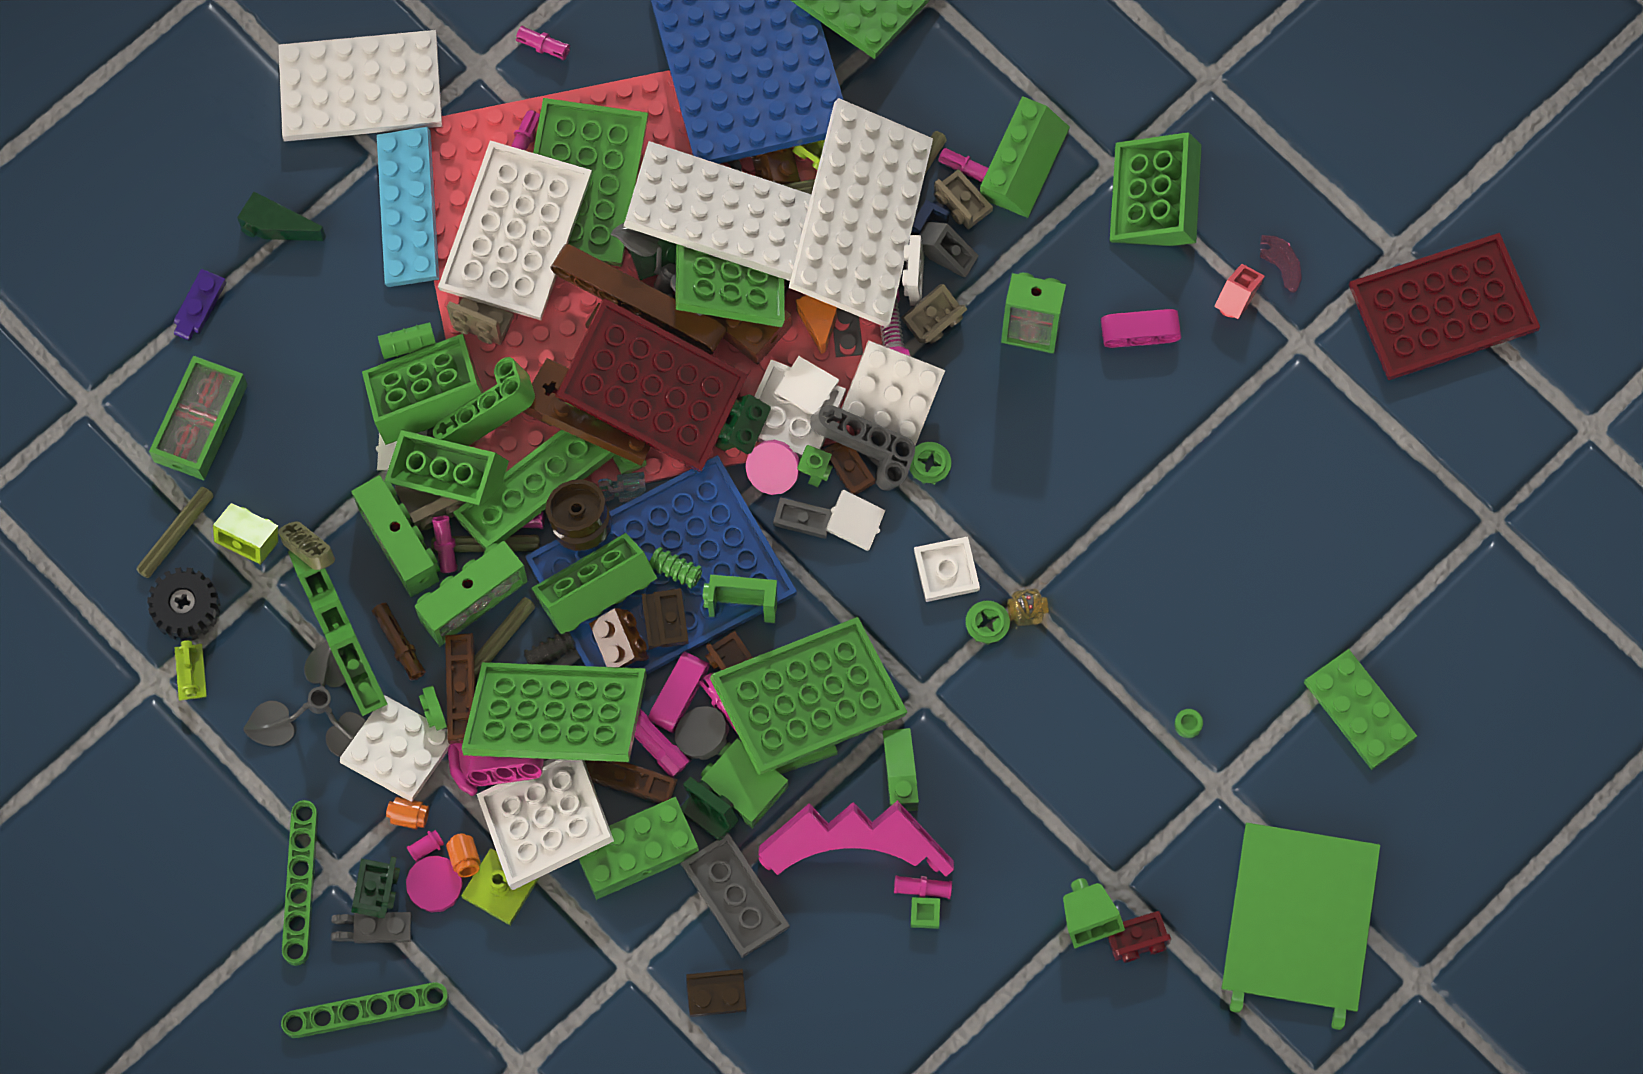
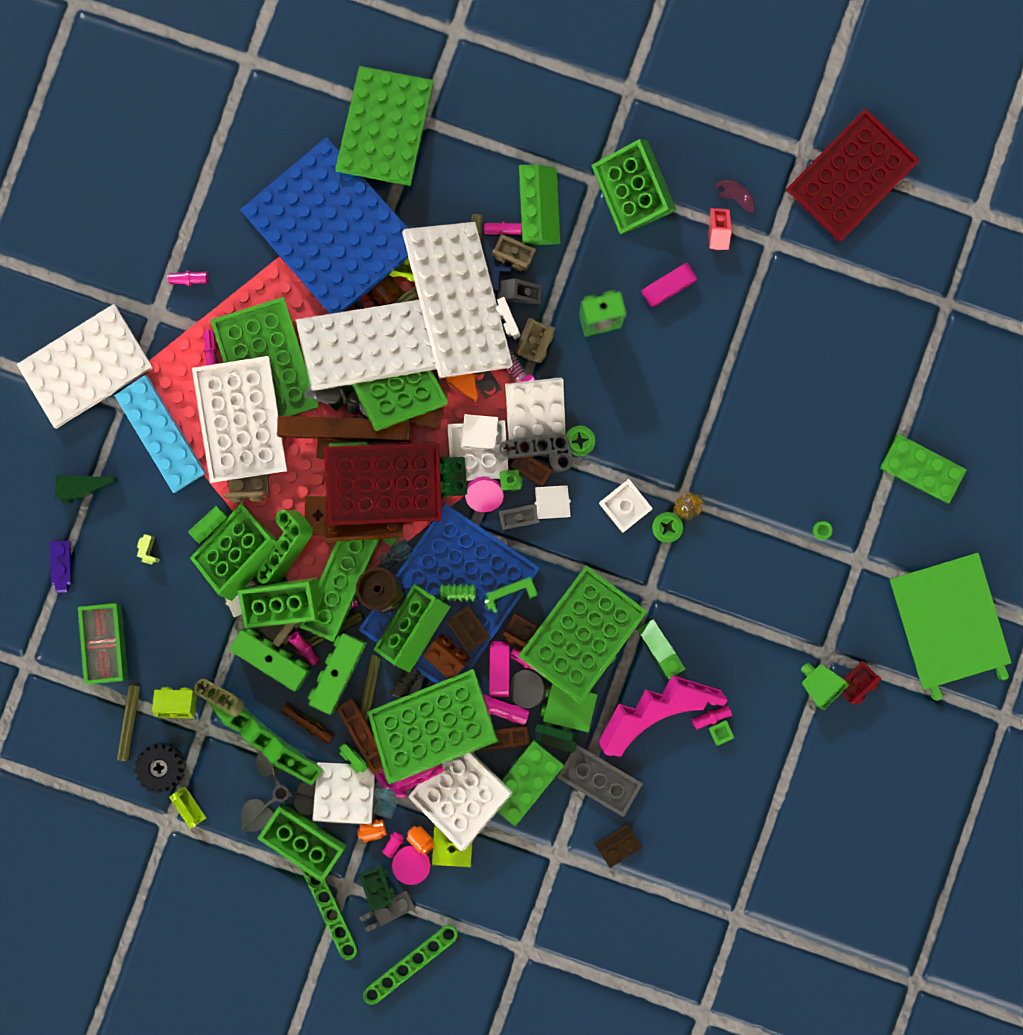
camera: 25 degrees left, 15 degrees up
(311, 780) = (302, 841): none -> bright green slope
(313, 332) = (145, 546): none -> yellowish green bracket
(445, 784) = (386, 802): none -> clear light blue bracket

